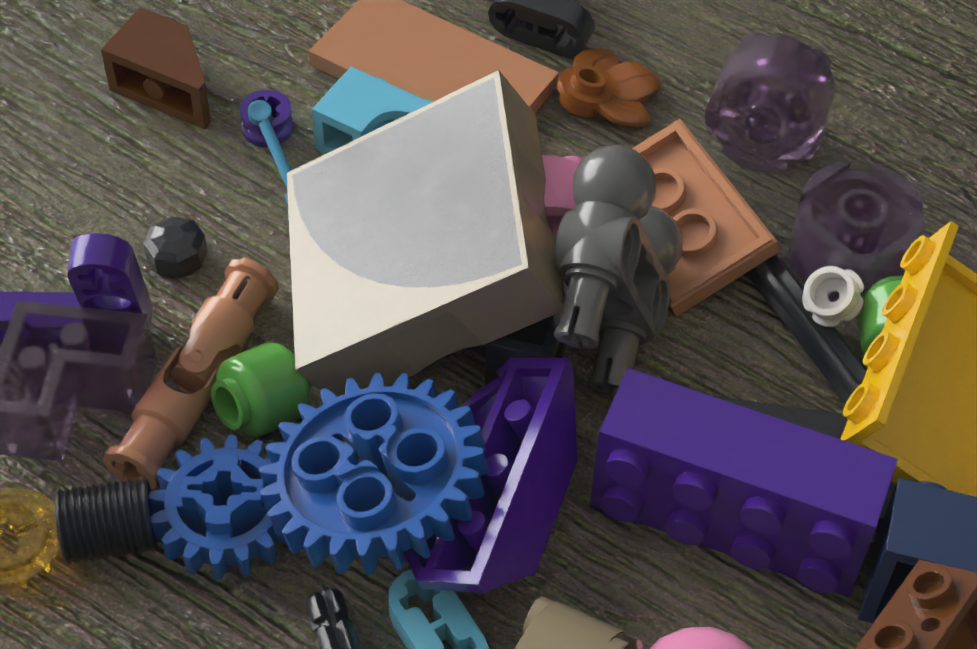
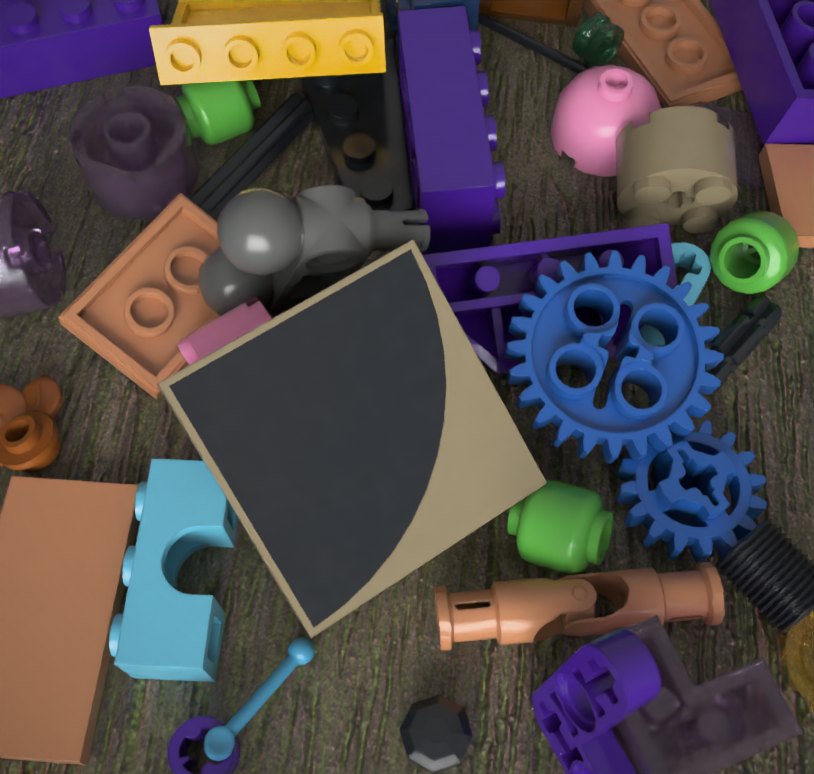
camera: 115 degrees left, 10 degrees up
(822, 284) = (224, 133): white plate -> none

